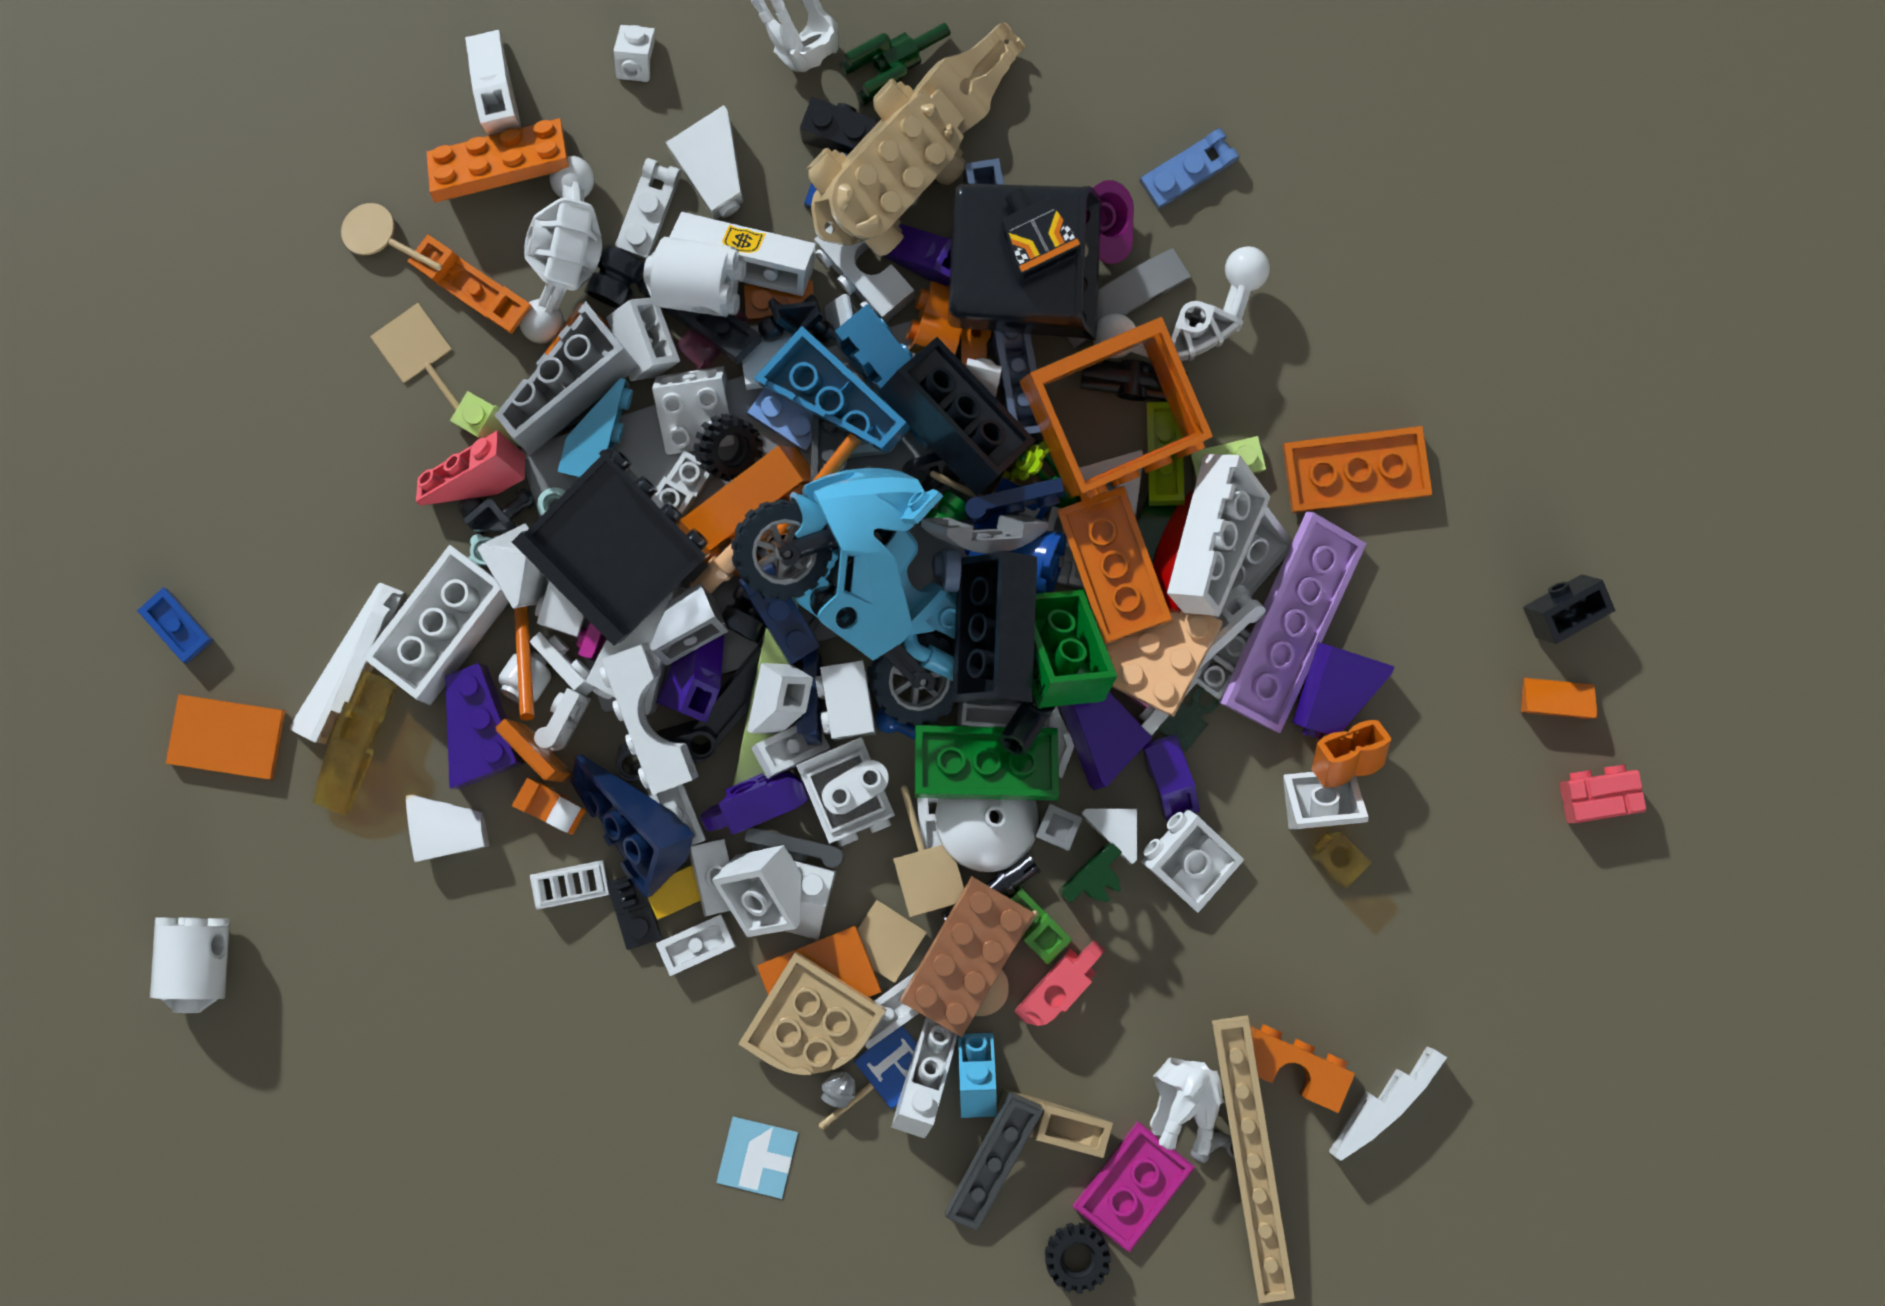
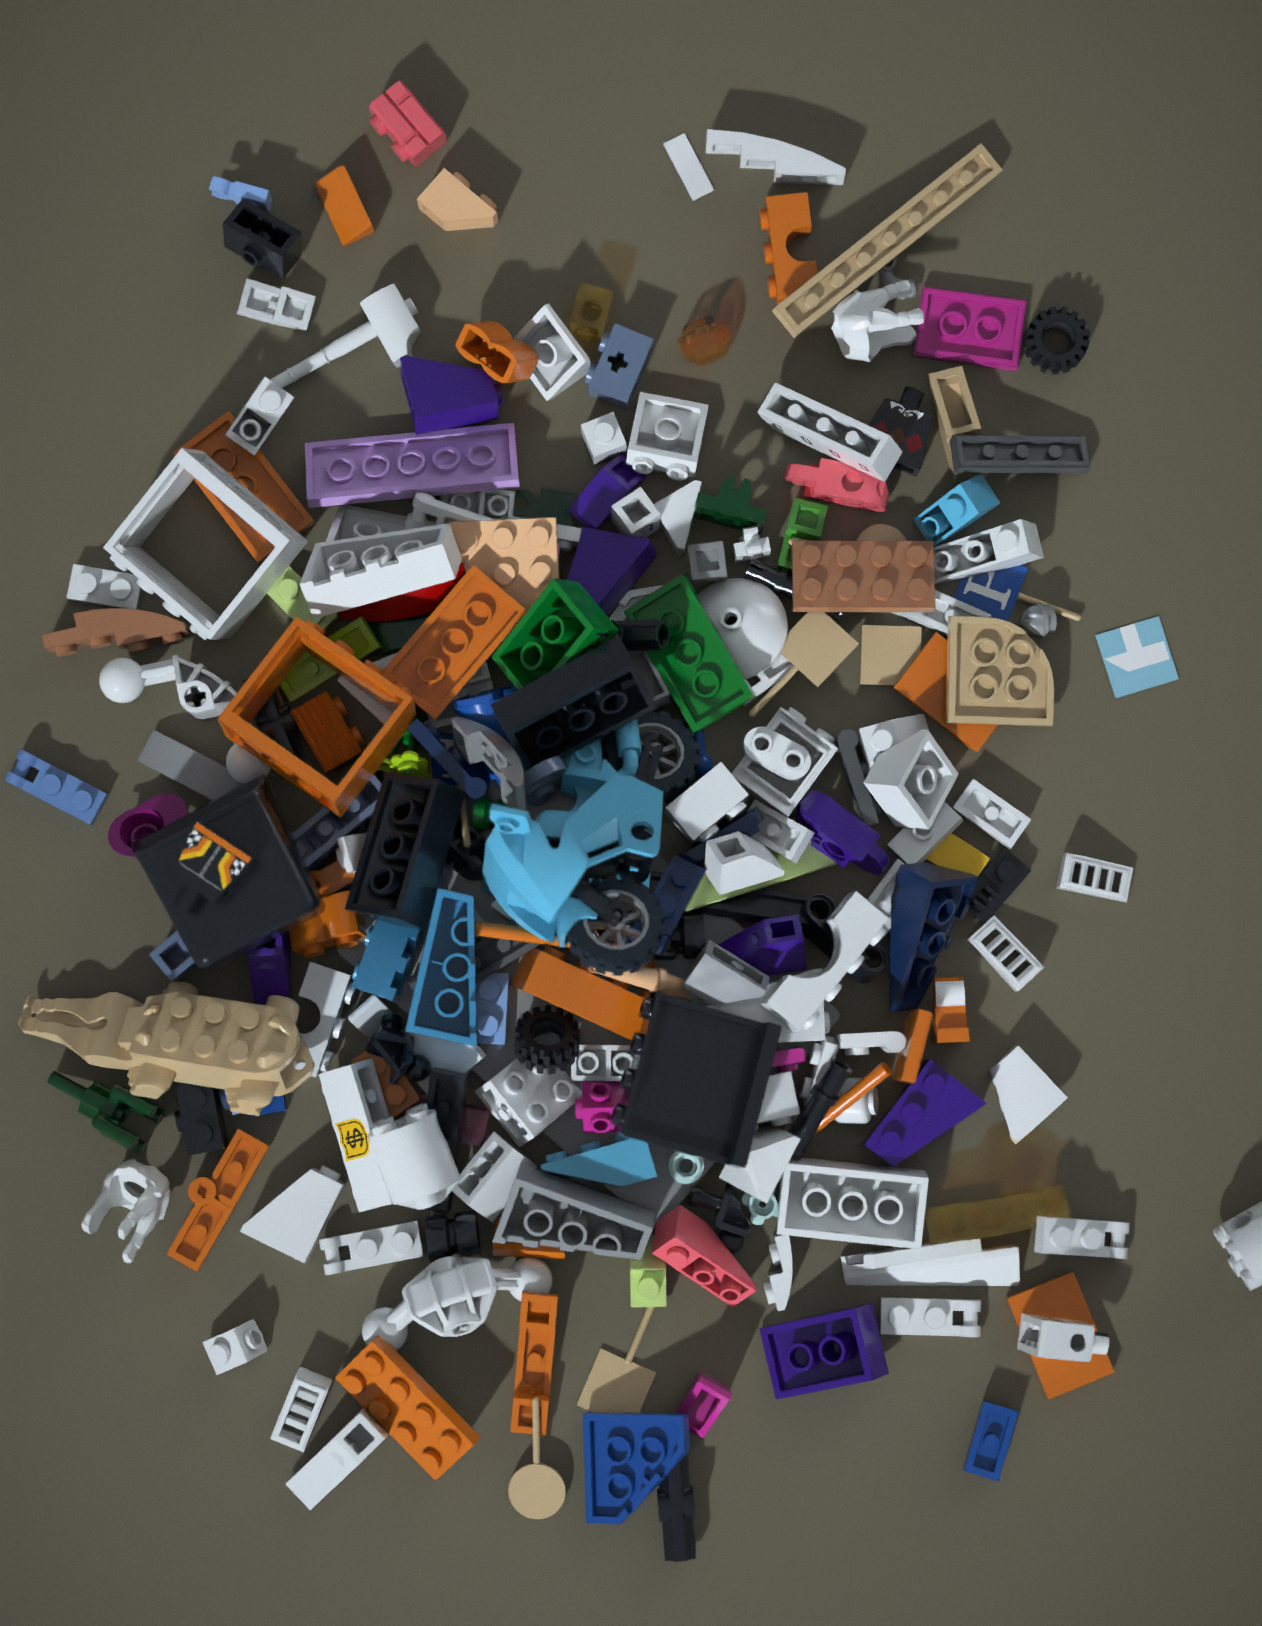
camera: 120 degrees left, 0 degrees up
(217, 730) = (1060, 1338): none -> white torso
(285, 334) = (677, 1513): none -> black piece
(292, 802) = (1080, 1237): none -> white plate
(308, 636) = (928, 1316): none -> white plate
(331, 531) = (824, 1351): none -> dark purple slope
(344, 315) = (628, 1459): none -> blue plate
(353, 406) = (704, 1403): none -> dark pink slope
(409, 524) = (779, 1287): none -> white slope
(537, 649) = (823, 1097): none -> black pin
(564, 95) = (311, 1381): none -> white slope
(607, 980) = (1066, 873): none -> white slope
(648, 457) = (597, 1105): none -> dark pink brick
(764, 105) = (216, 1199): none -> orange hinge
(1051, 875) = (751, 546): none -> white plate
(1076, 1065) = (906, 426): none -> black torso
(1102, 419) = (328, 732): none -> orange brick
(1109, 1002) = (830, 432): none -> white brick
(1135, 789) = (636, 515): none -> white brick
(1221, 802) = (603, 438): none -> white brick
(1257, 943) = (704, 341): none -> clear orange head
(1280, 875) = (619, 386): none -> sand blue brick
(1290, 302) = (130, 627): none -> nougat slope
(1312, 350) = (177, 598): none -> white window
(1337, 305) = (104, 587): none -> white plate
(1411, 514) = (259, 415): none -> white slope
(1423, 1023) = (688, 166): none -> white sticker
(1431, 678) = (388, 319): none -> white piece
(1503, 589) = (276, 305): none -> white slope
(1505, 794) = (455, 206): none -> light nougat slope
(1624, 612) = (236, 191): none -> light blue plate

